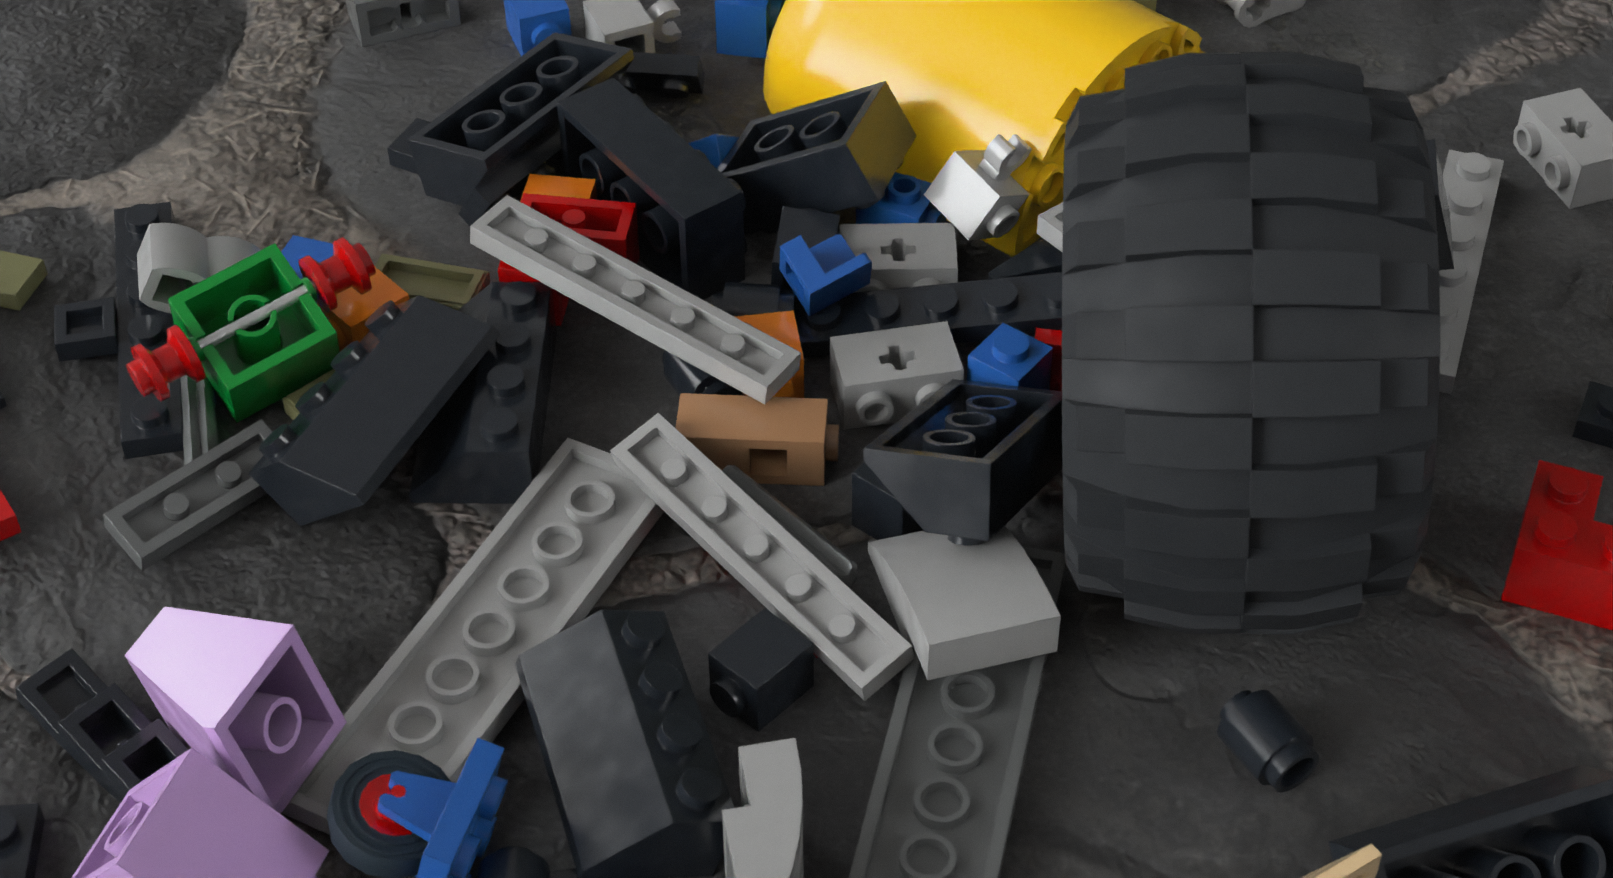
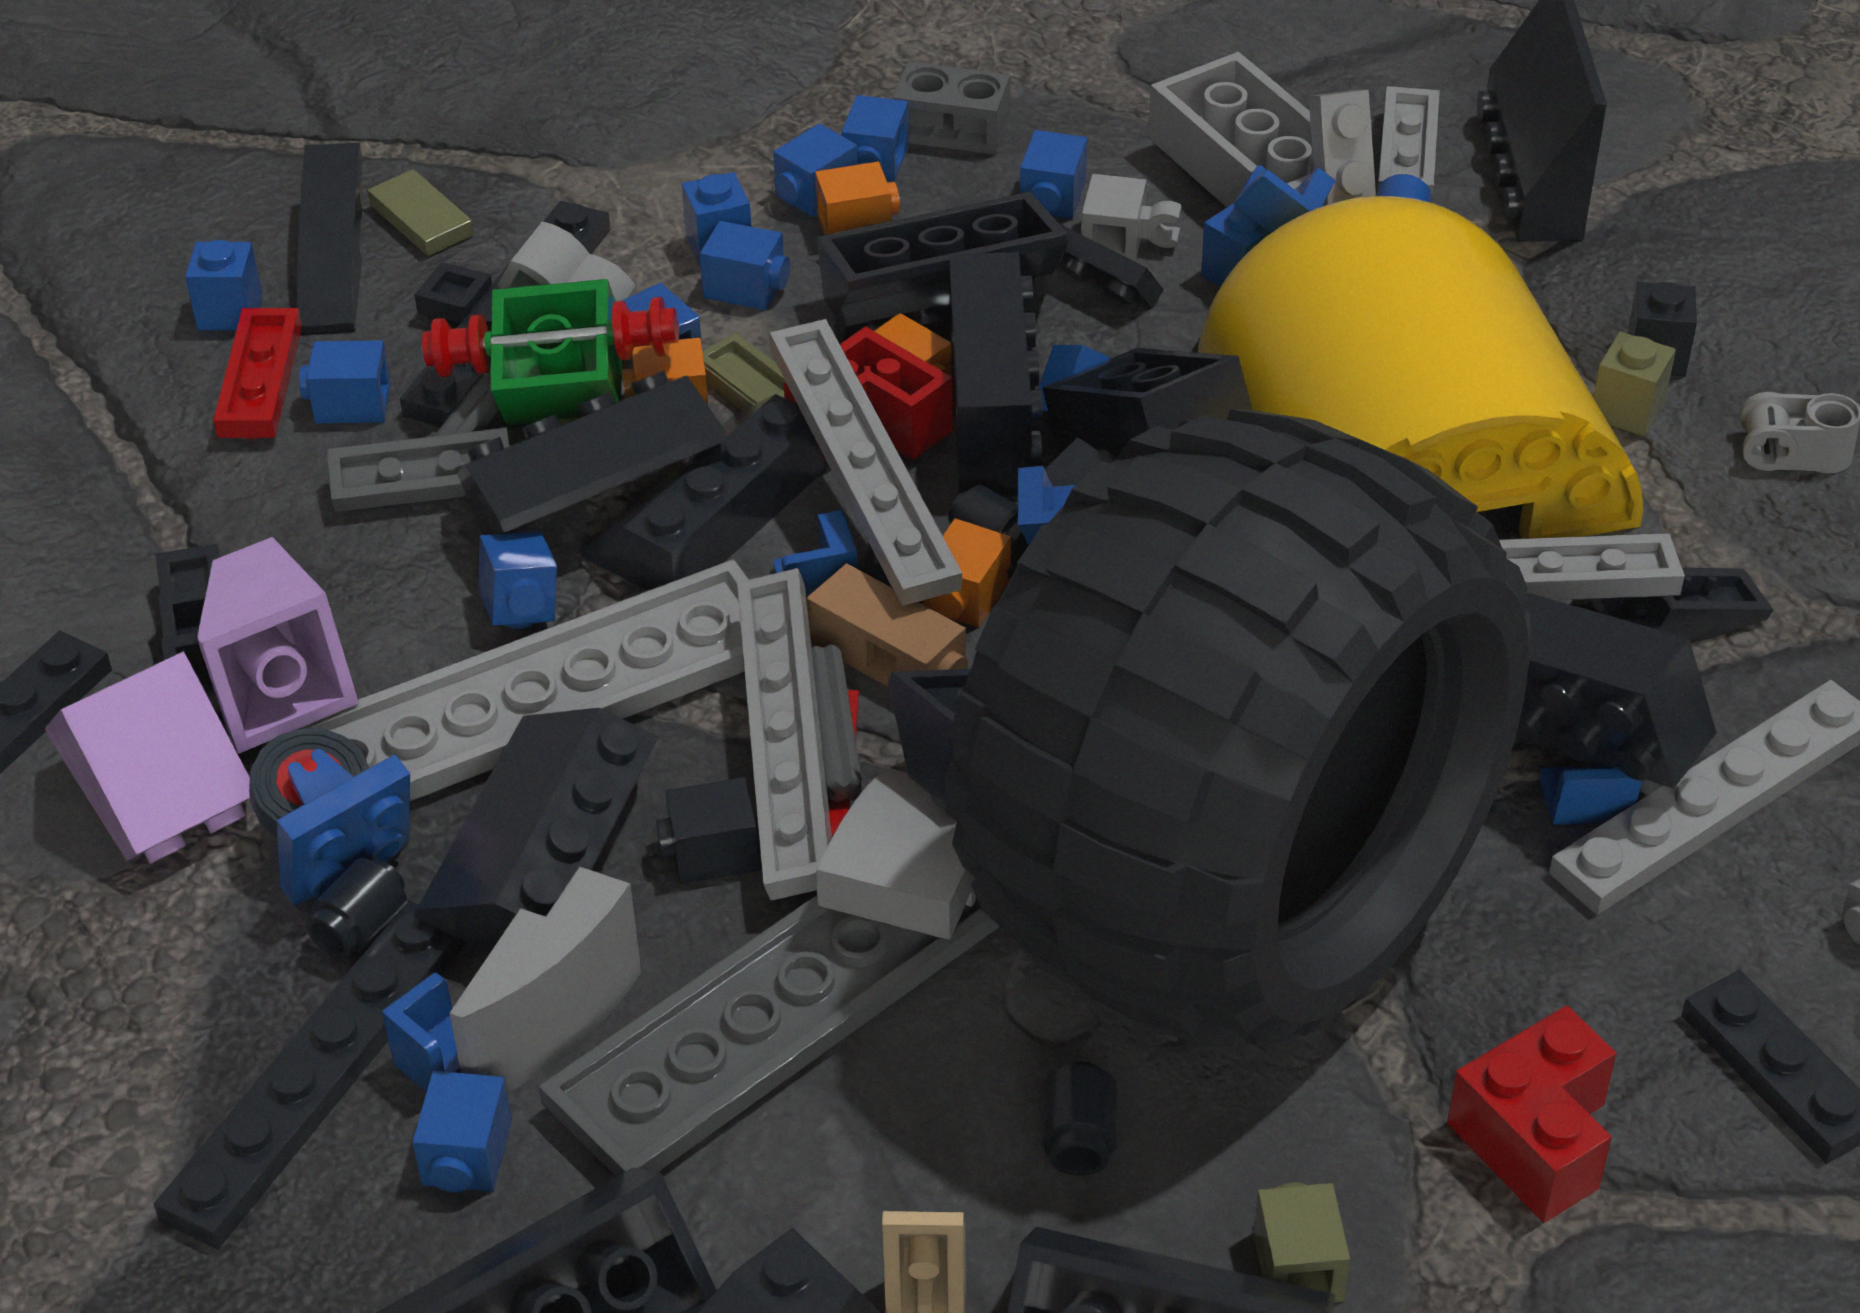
camera: 35 degrees right, 0 degrees up
(56, 449) = (347, 381): none -> blue brick
(283, 166) = (712, 200): none -> blue brick
(330, 92) = (800, 158): none -> blue brick
(341, 194) = (743, 265): none -> blue brick
(358, 47) = (880, 132): none -> blue brick
(388, 103) = (854, 197): none -> orange brick
(393, 543) = (517, 579): none -> blue brick
(643, 393) = (834, 552): none -> blue panel
(1511, 738) = (1302, 1237): none -> olive brick

